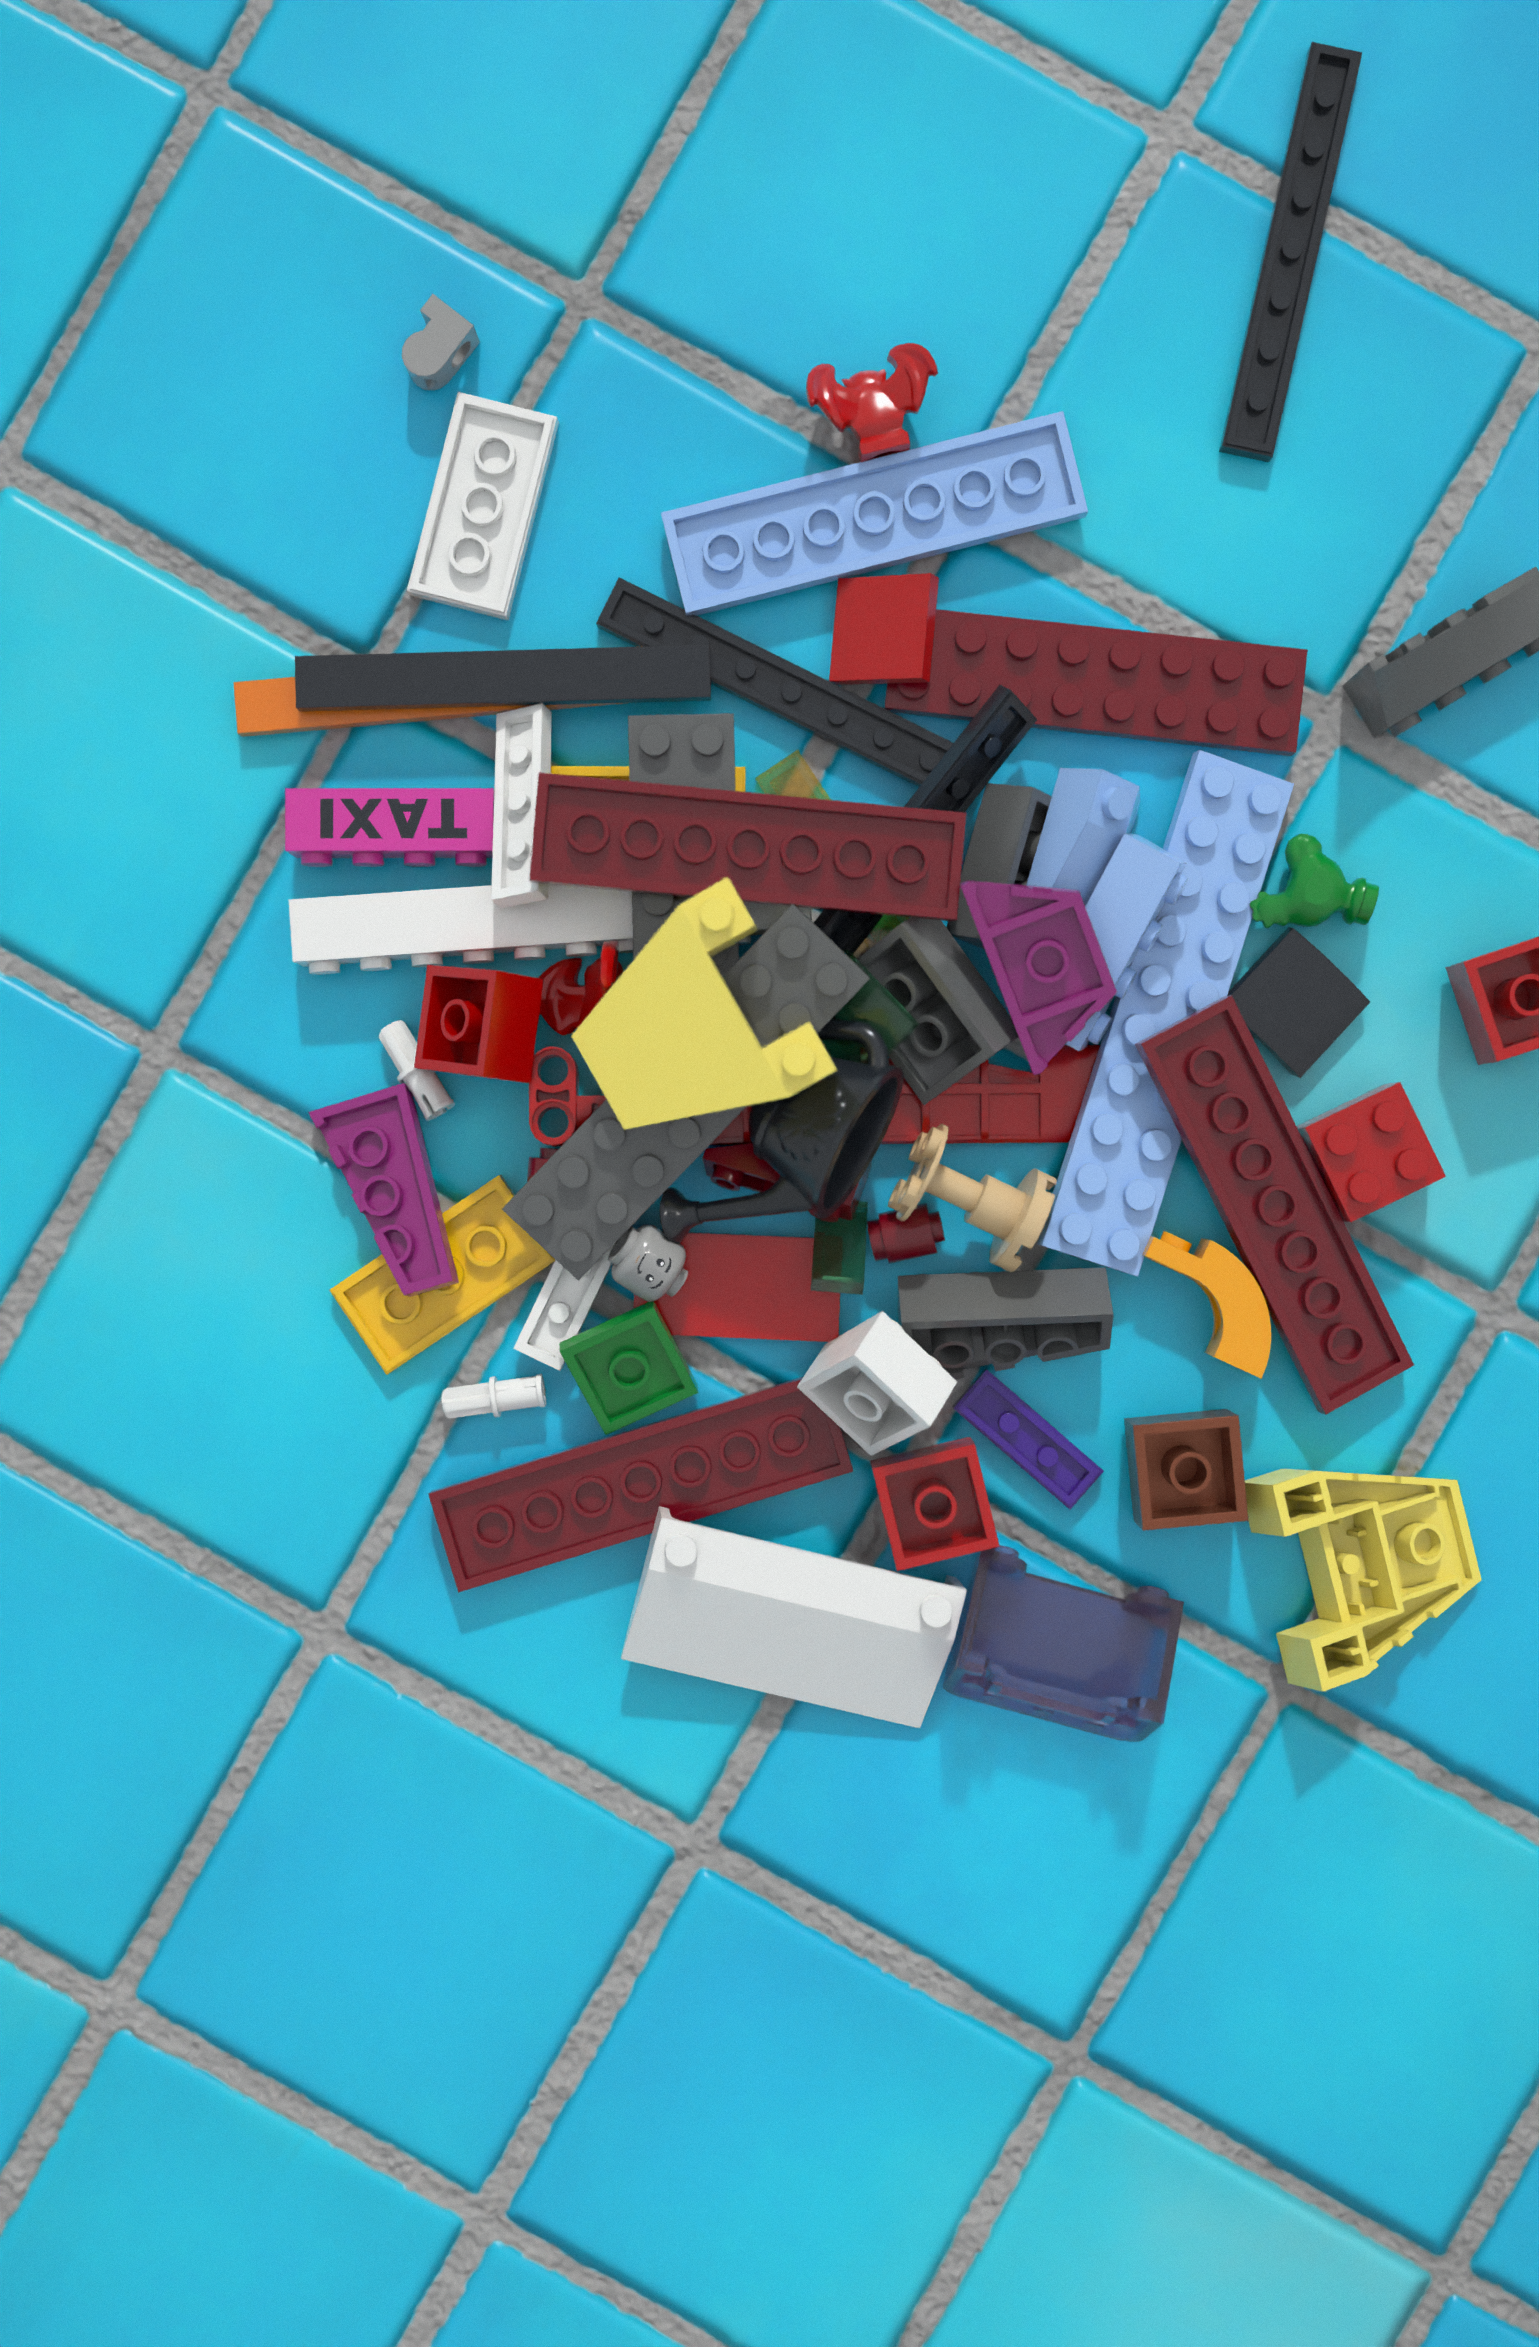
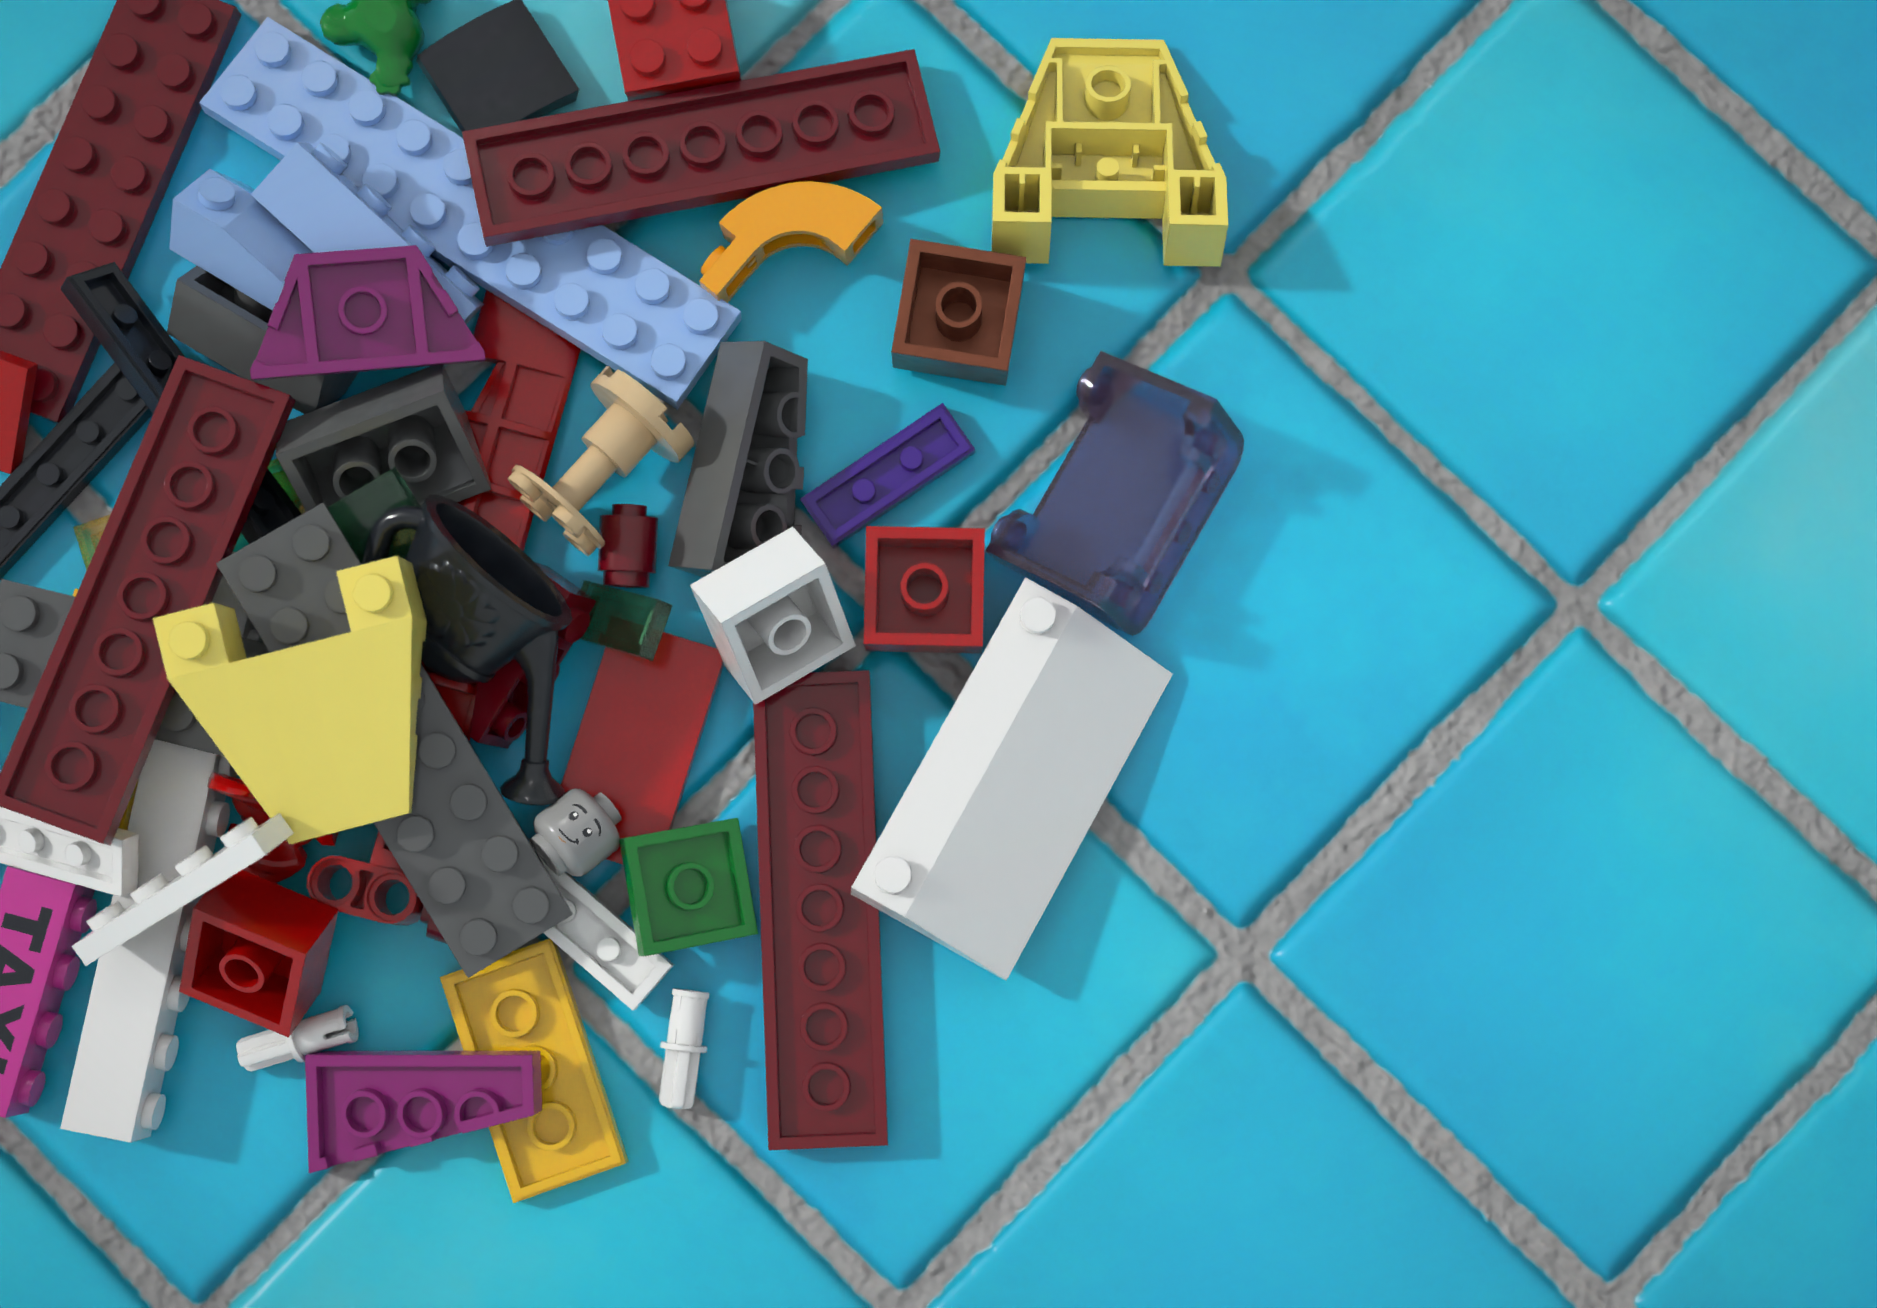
camera: 75 degrees left, 5 degrees down
(519, 965) = (197, 875): none -> white plate

